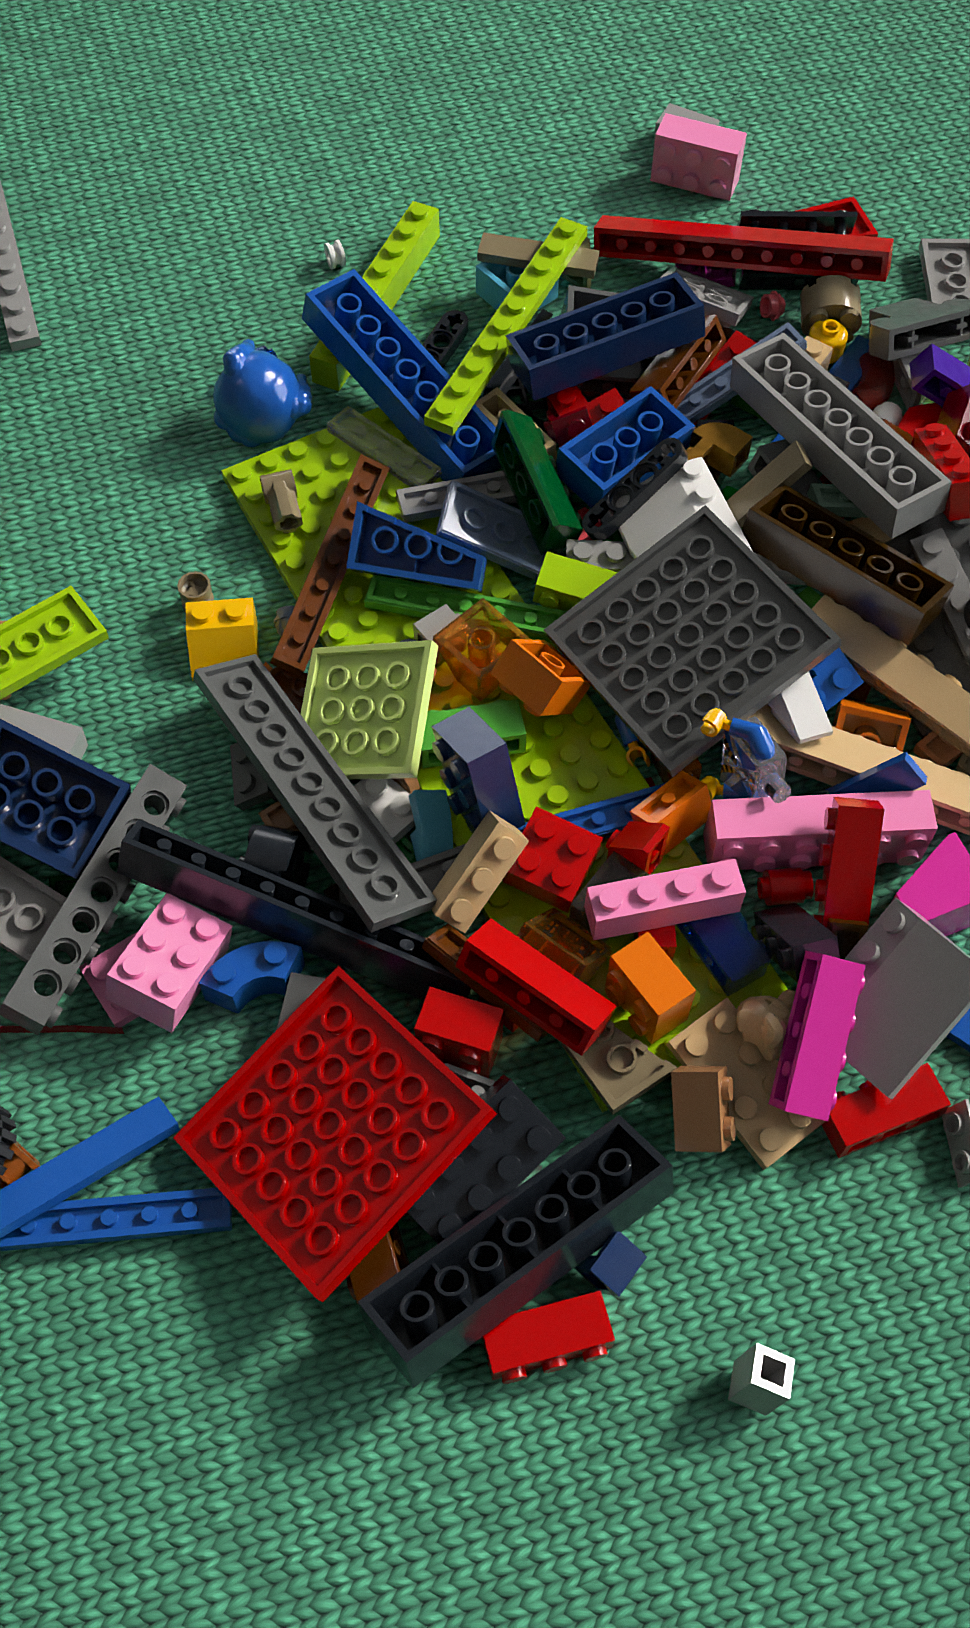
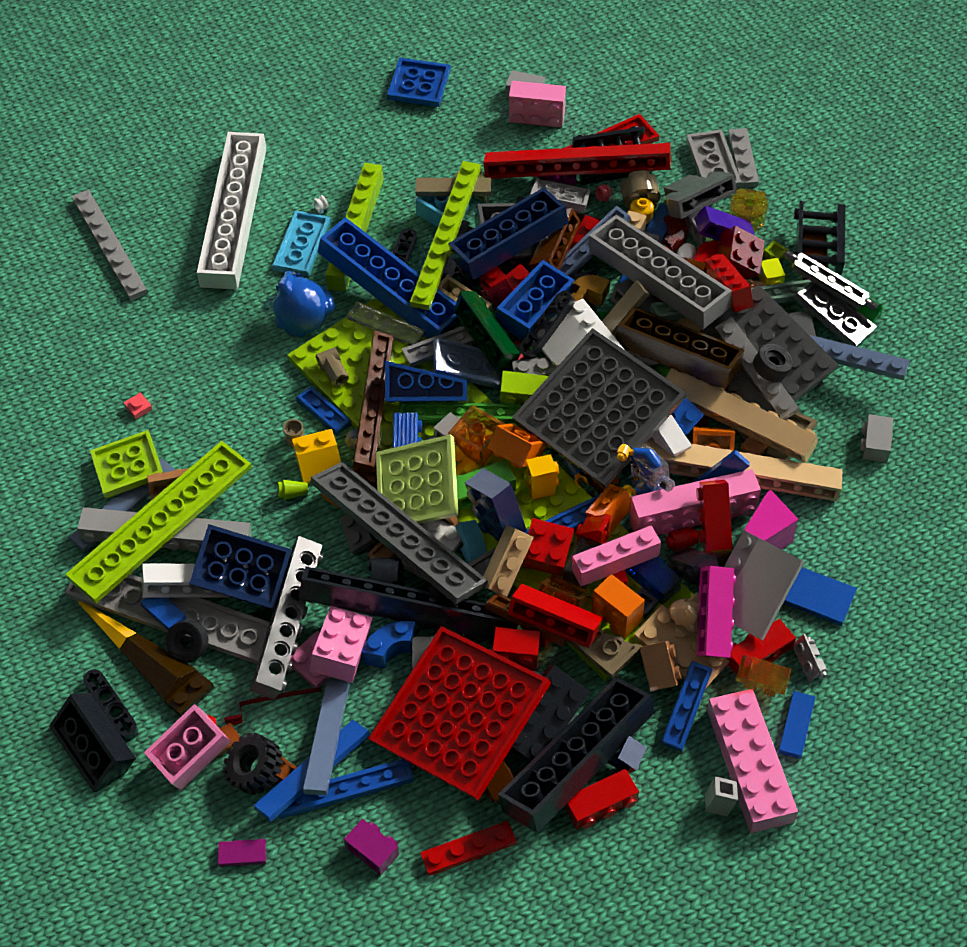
camera: 10 degrees left, 5 degrees down
(100, 1126) = (326, 737): none -> sand blue tile
(126, 1340) = (372, 846): none -> magenta brick
(165, 684) = (291, 489): none -> lime cone
(196, 243) = (232, 211): none -> white brick
(254, 568) = (323, 410): none -> blue tile
(278, 315) = (301, 243): none -> medium azure tile
(293, 1377) = (468, 848): none -> red plate
(370, 619) = (406, 429): none -> blue brick
(527, 102) = (419, 82): none -> blue plate
(571, 737) = (541, 476): none -> yellow brick
(706, 987) = (650, 602): none -> black plate
(733, 1191) = (686, 706): none -> blue tile
(830, 1321) = (752, 761): none -> bright pink brick
(880, 1164) = (764, 675): none -> clear orange brick
(923, 1264) = (797, 724): none -> blue tile

